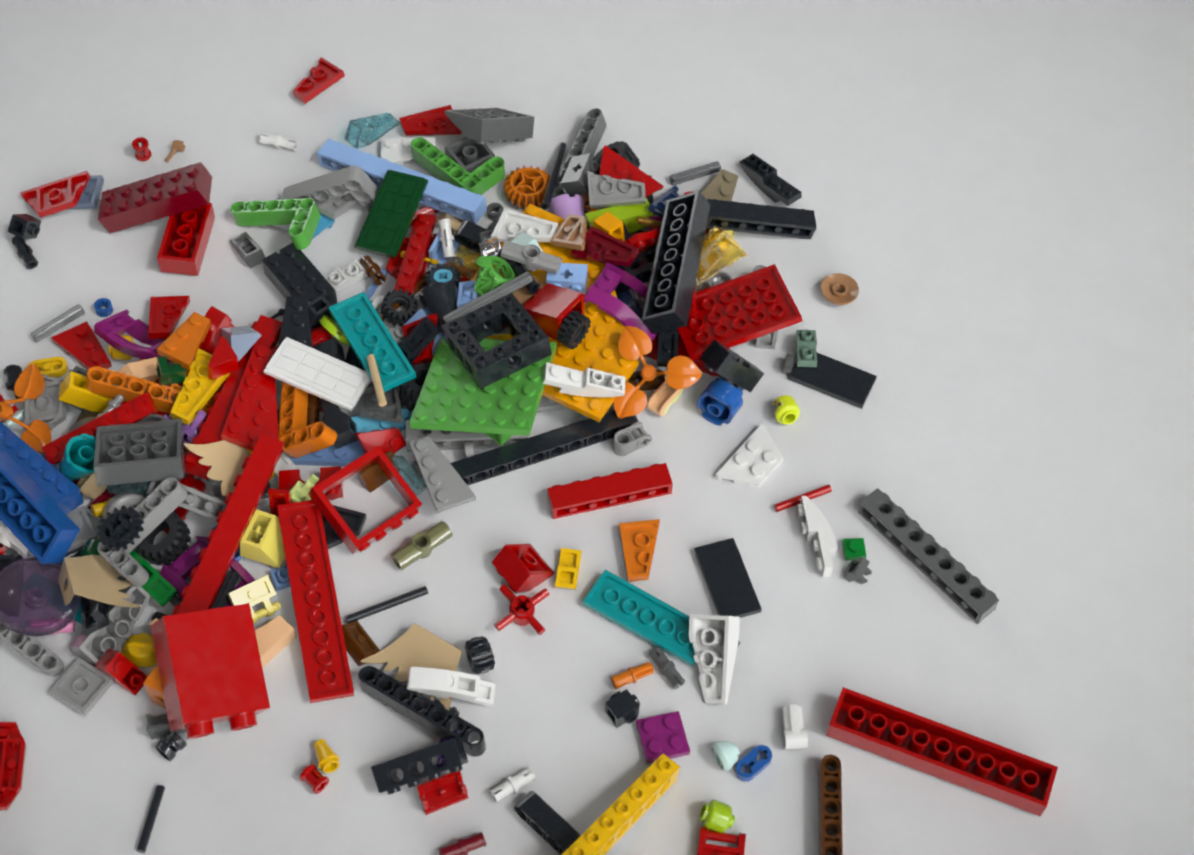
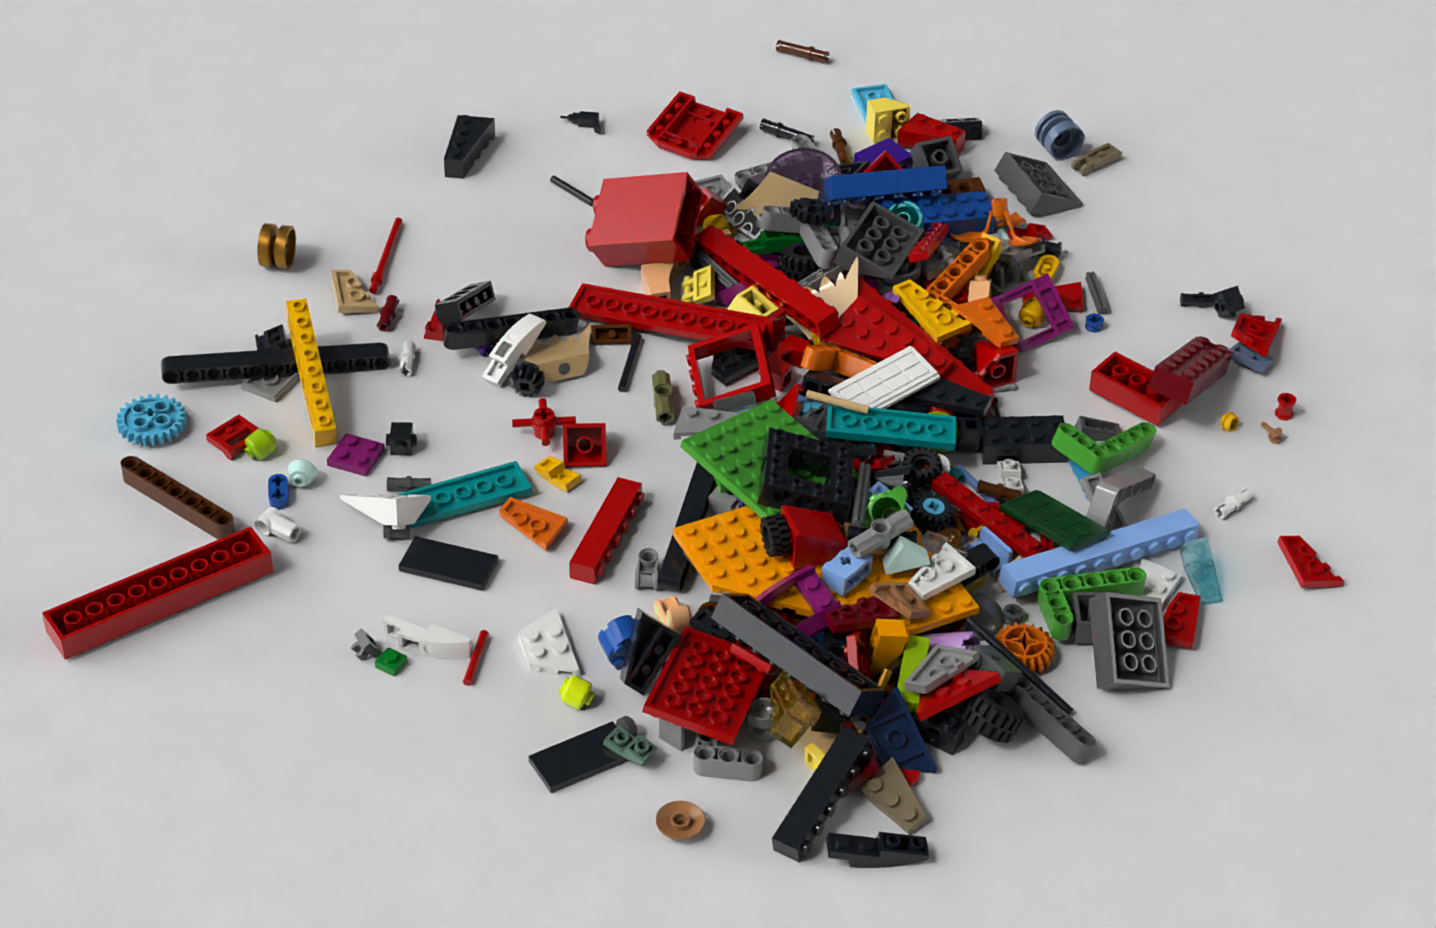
camera: 125 degrees right, 15 degrees down
(165, 315) = (1049, 346): red wing -> none
(169, 374) = (954, 291): dark green panel -> none
(223, 360) = (943, 324): red slope -> none
(240, 339) = (967, 352): slope -> none
(300, 491) = (772, 337): yellowish green plate -> none
(314, 779) = (518, 266): red bush -> none
(326, 757) = (529, 278): yellow cone -> none
(446, 238) = (992, 542): white pin -> none
(588, 383) = (715, 520): white slope -> none
(632, 675) = (424, 460): orange axle -> none
(636, 343) = (699, 600): orange plant -> none
(695, 173) = (943, 799): axle -> none
(929, 565) = (330, 700): dark grey brick -> none

